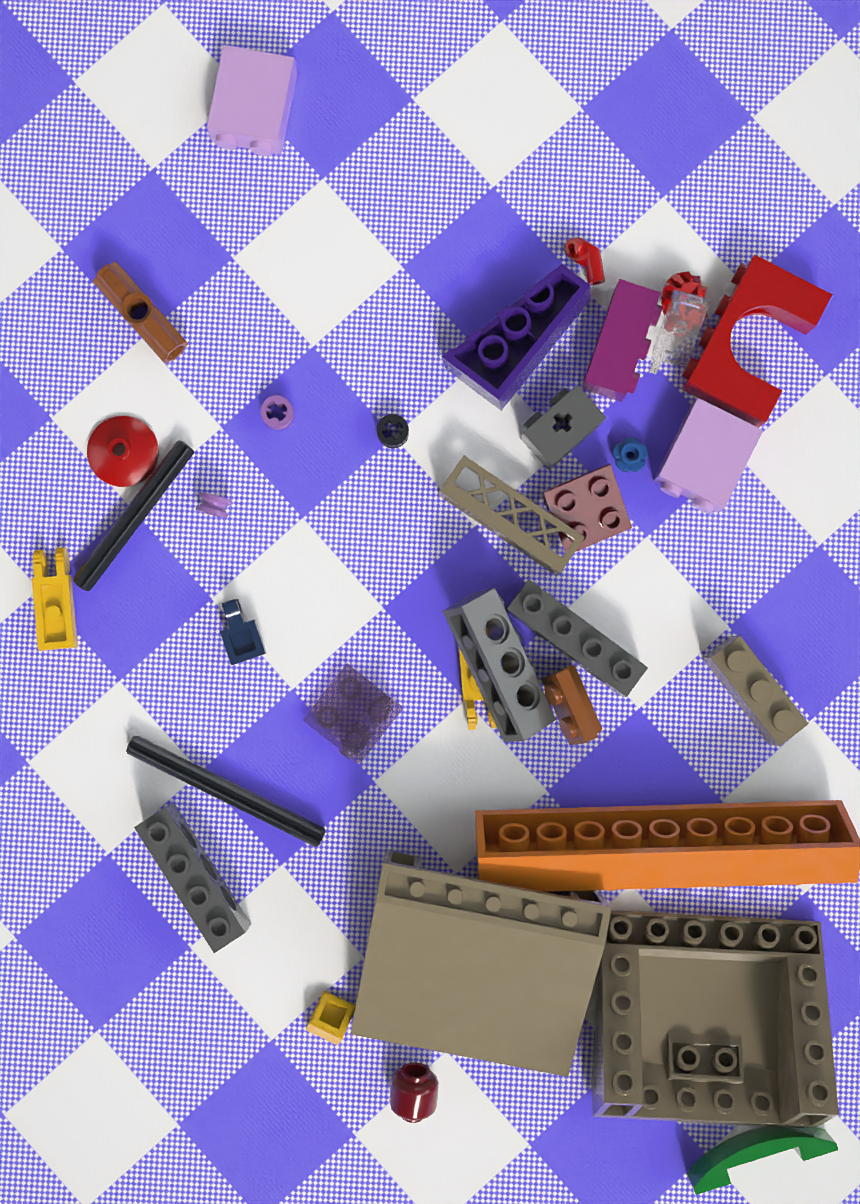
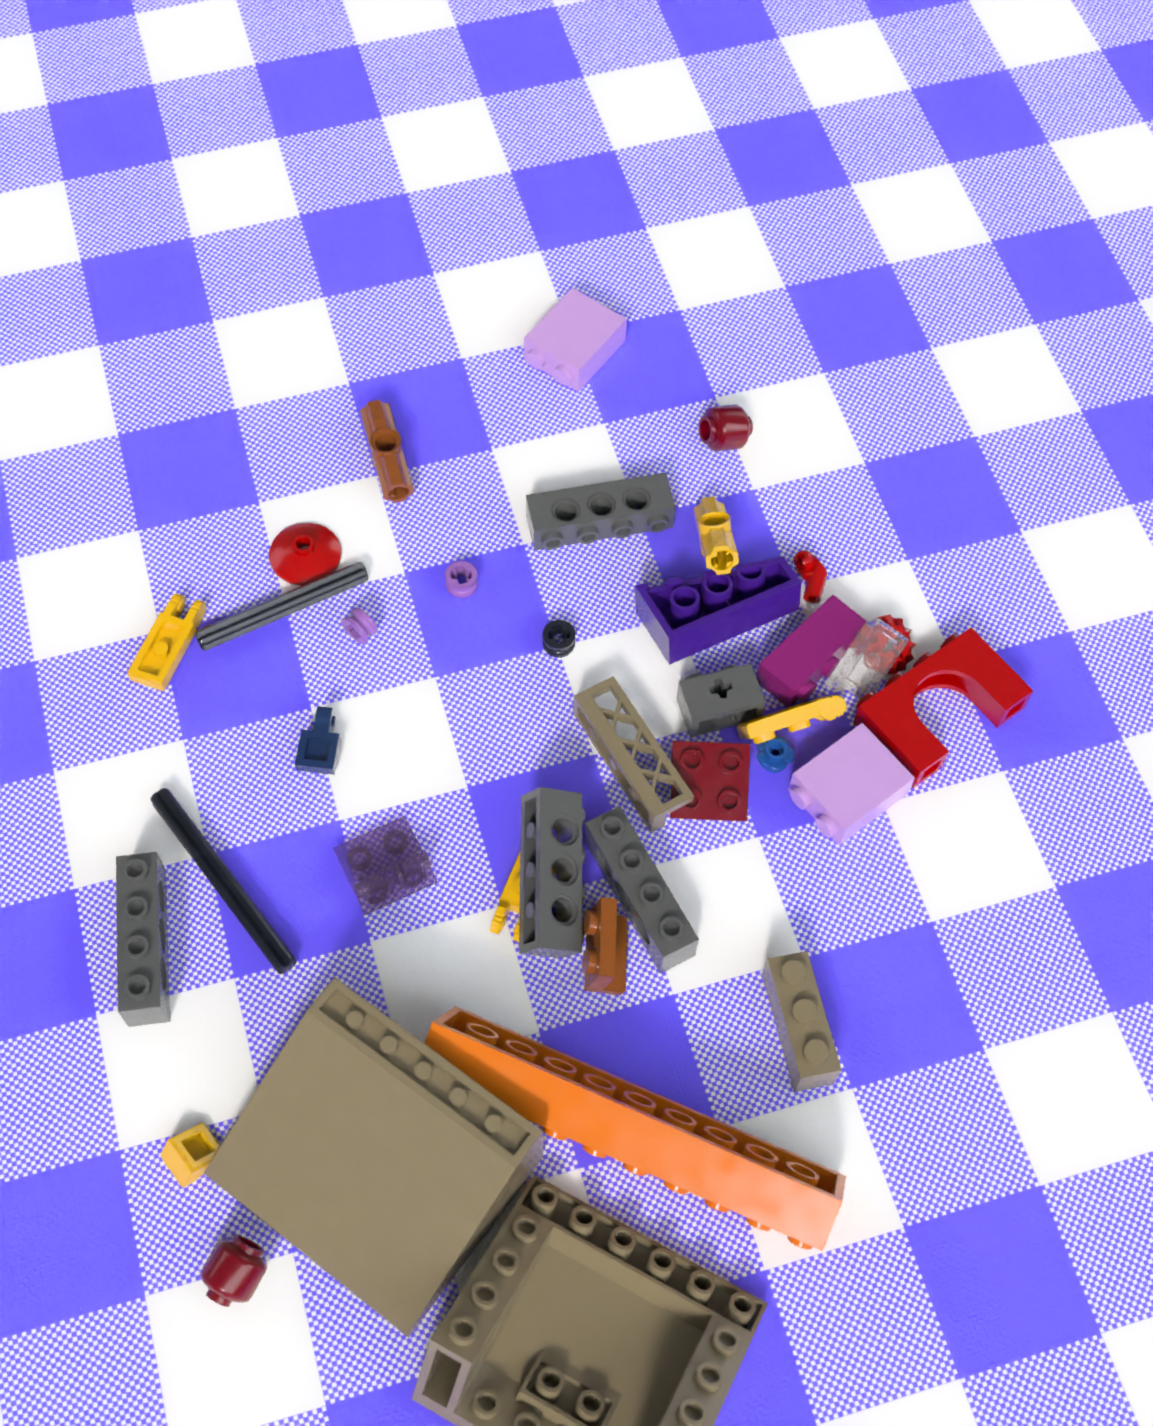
camera: 20 degrees right, 25 degrees down
(404, 244) = (611, 498): none -> dark grey brick
(441, 136) = (725, 428): none -> dark red head
(489, 267) = (716, 535): none -> yellow piece
(631, 415) = (793, 717): none -> yellow hinge

